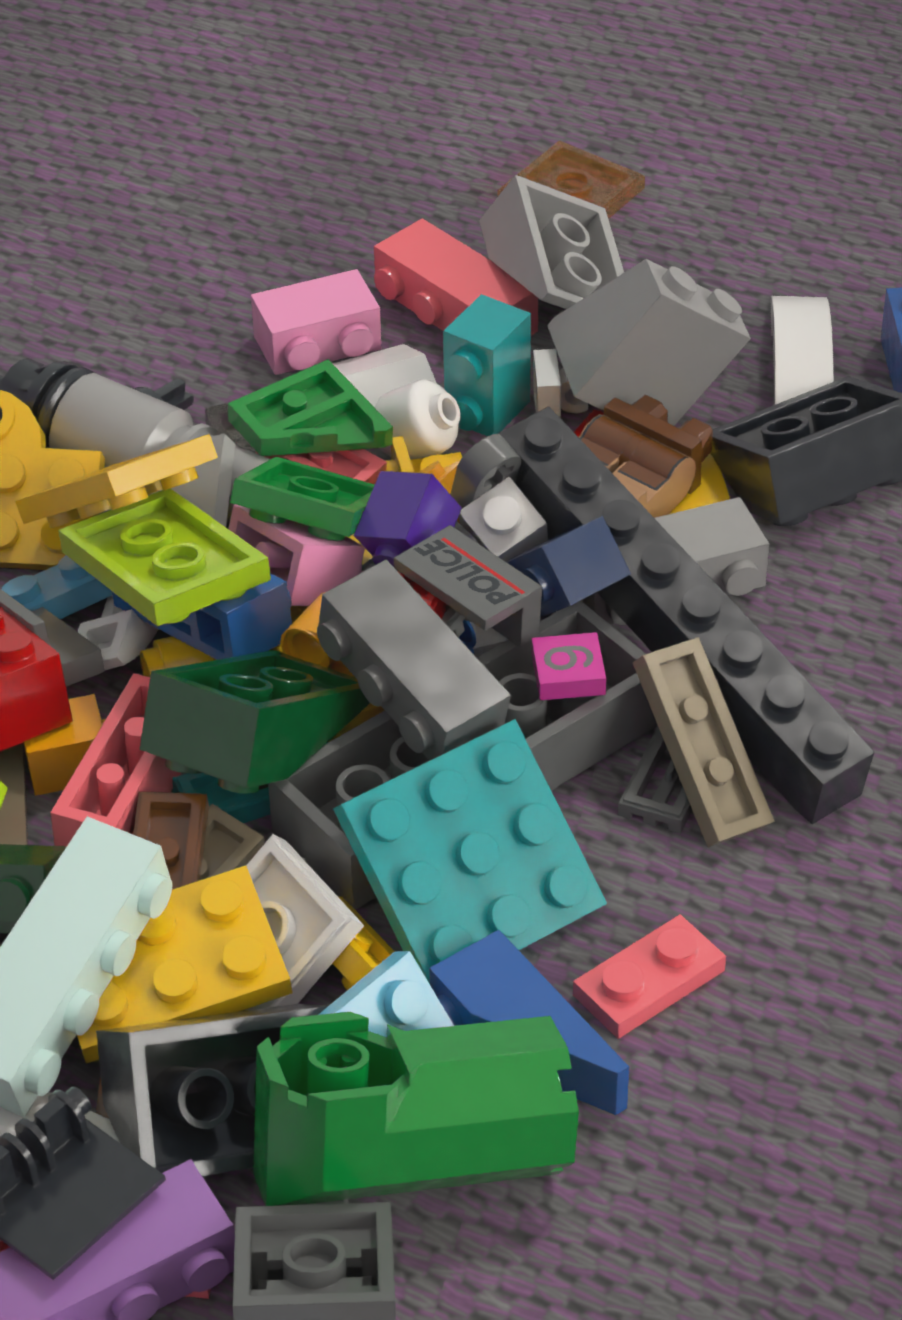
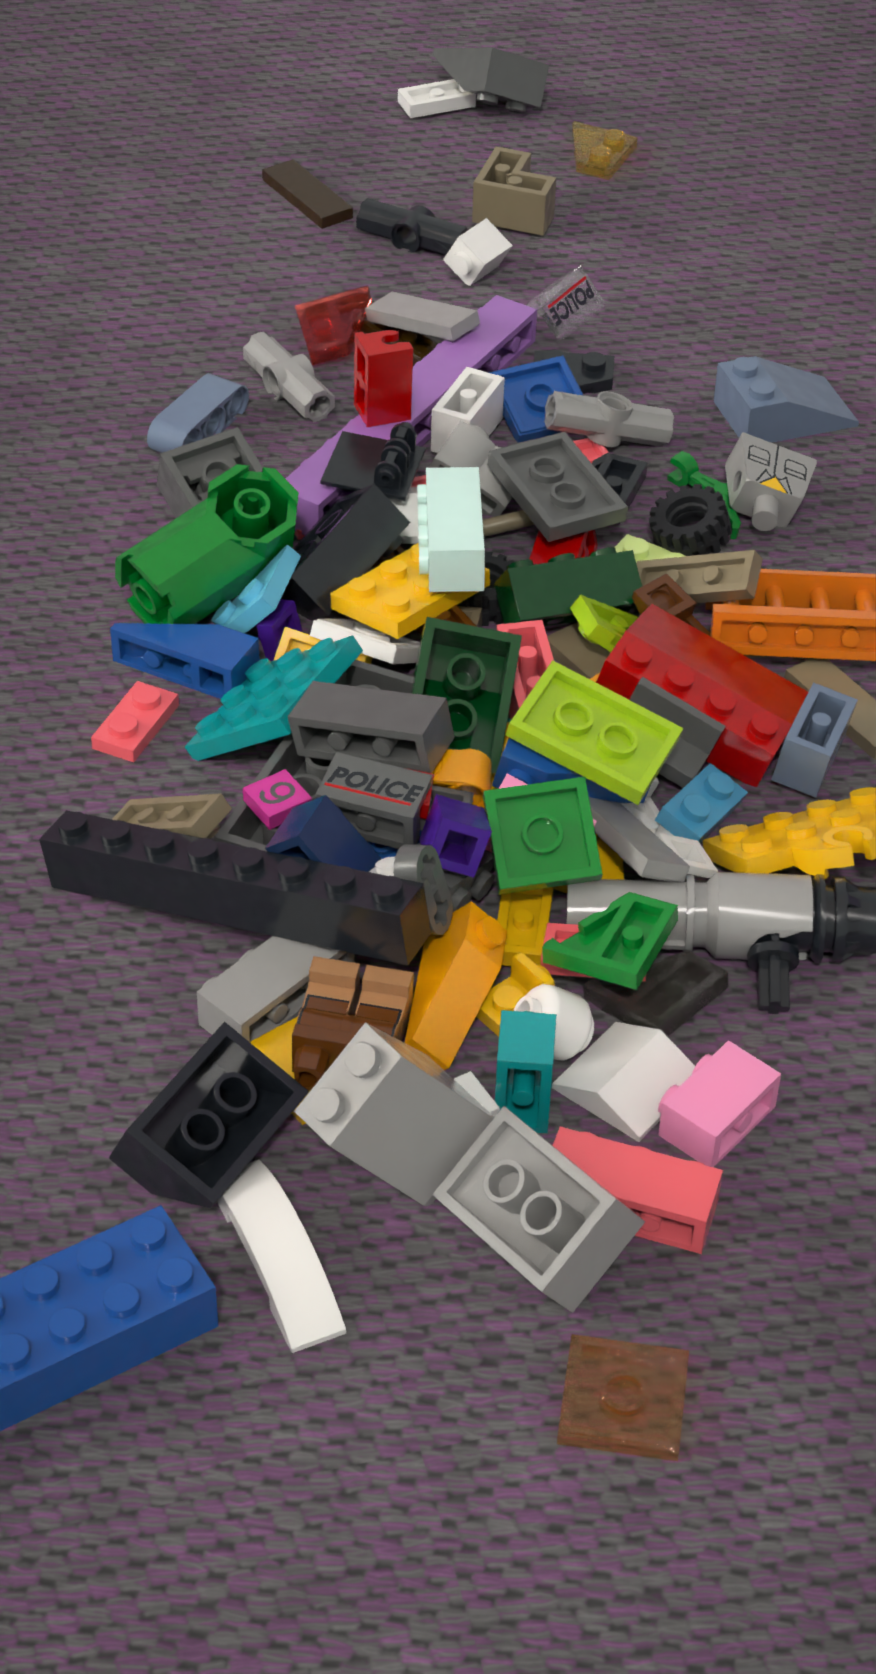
camera: 150 degrees right, 0 degrees up
(118, 484) = (685, 786): yellow plate -> none

